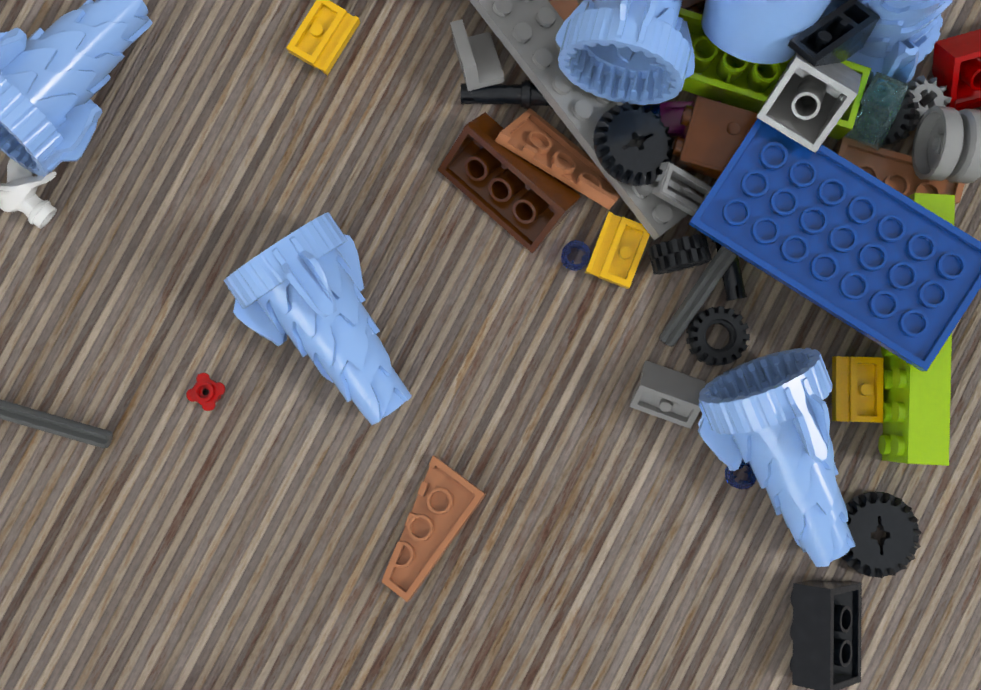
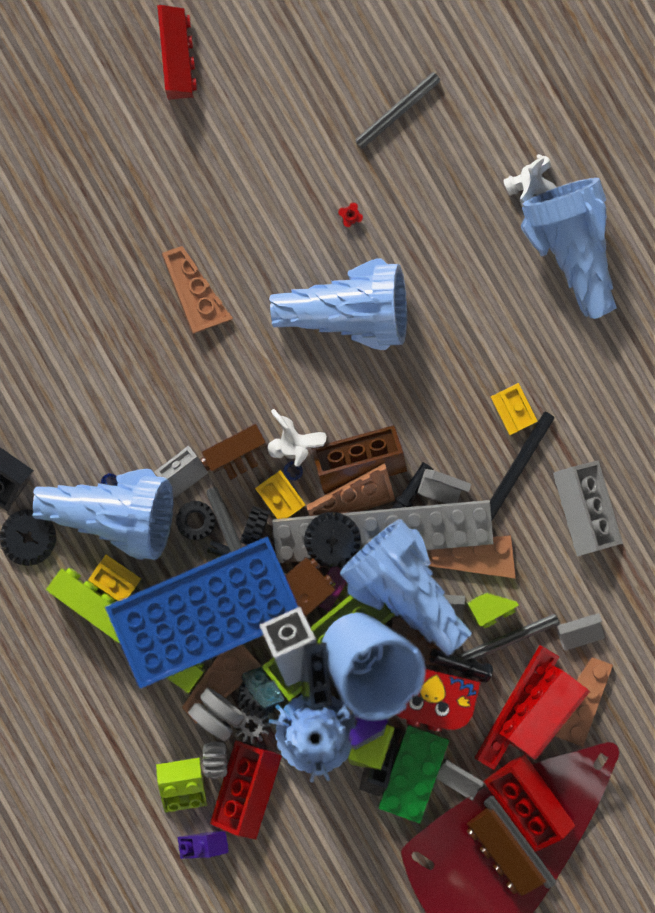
camera: 120 degrees right, 0 degrees up
(543, 272) = (293, 444): none -> white animal
(603, 342) = (233, 451): none -> reddish brown piece
(665, 182) = (300, 542): light grey tile -> none

